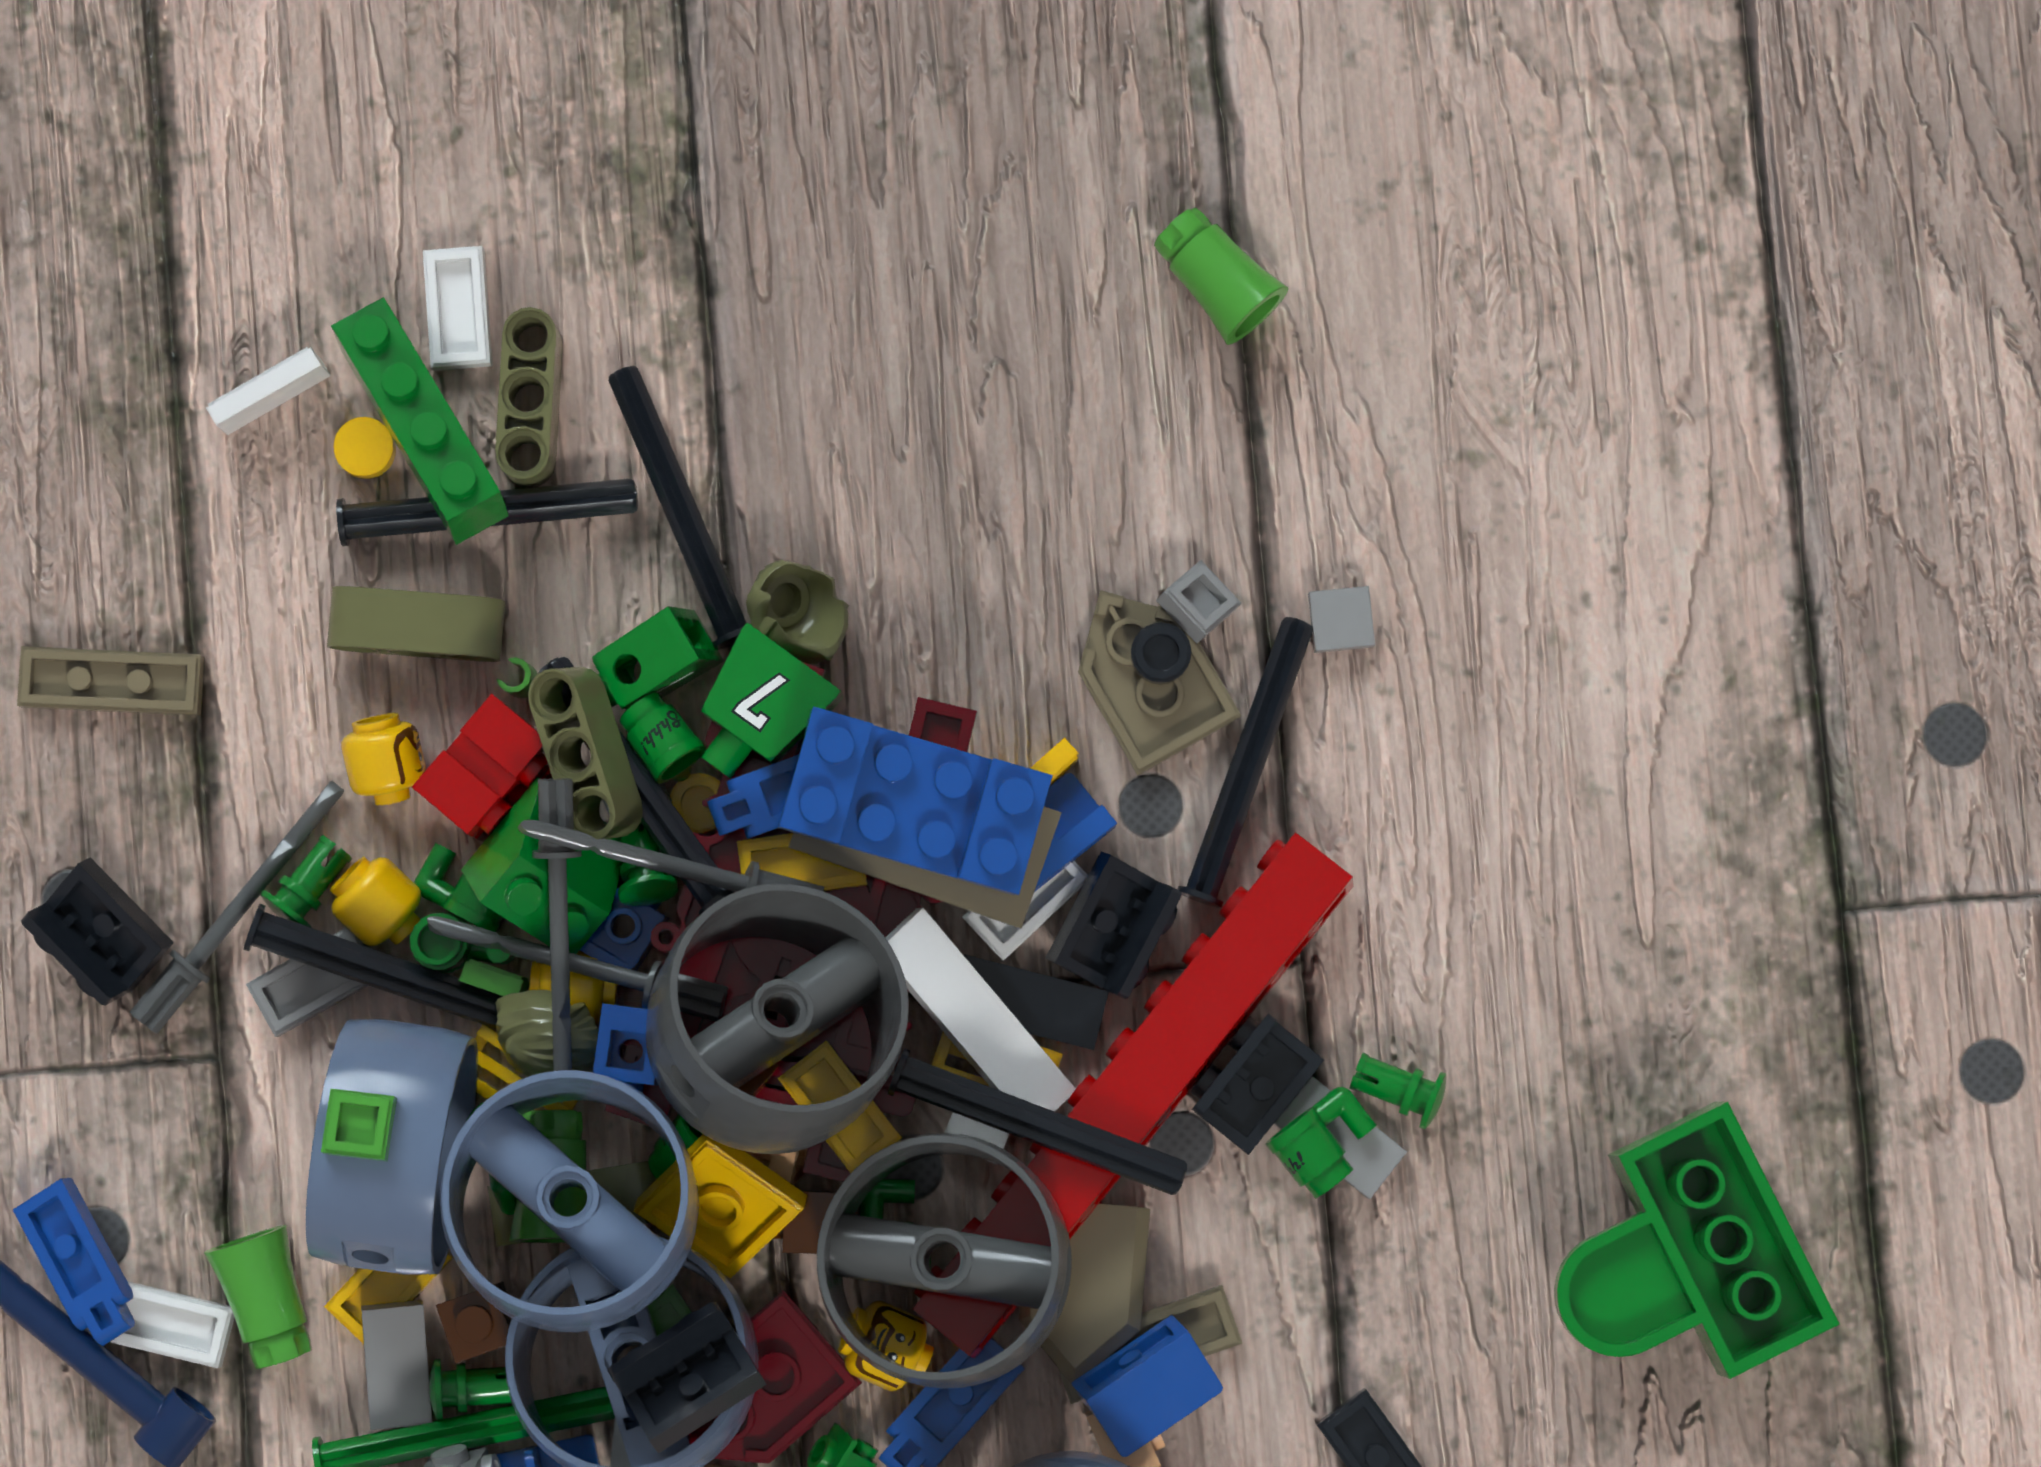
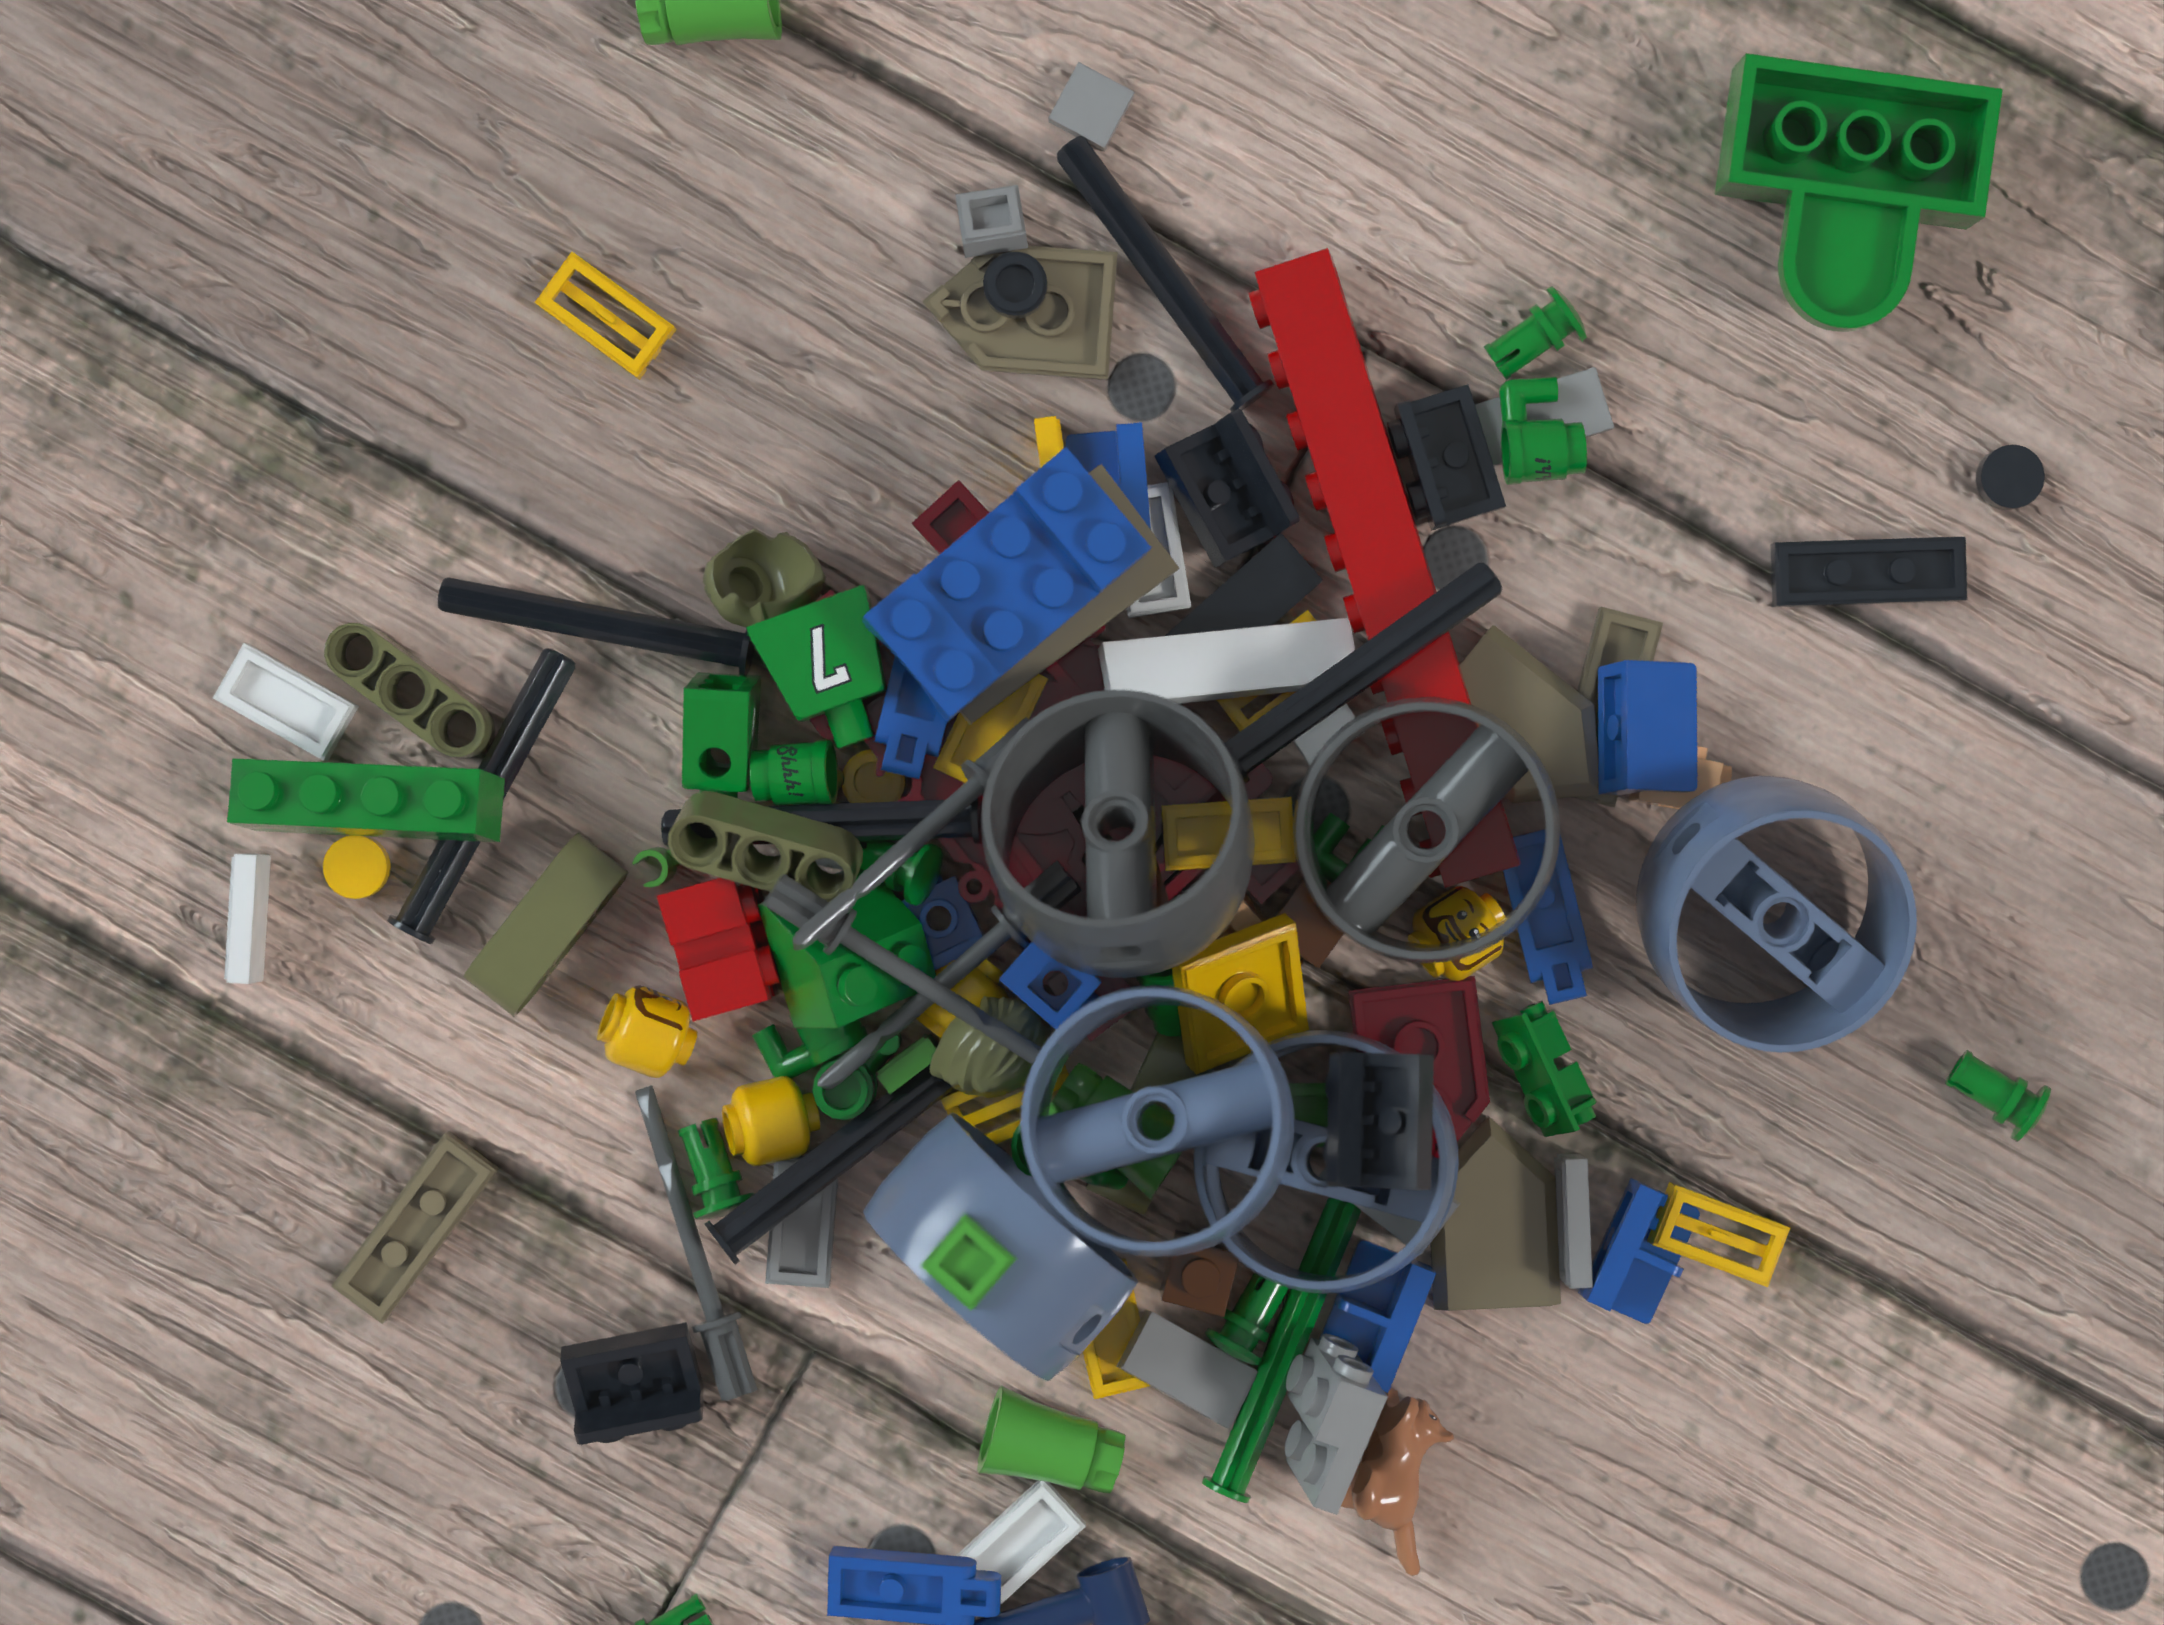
camera: 60 degrees left, 5 degrees up
(921, 403) = (648, 348): none -> yellow tile

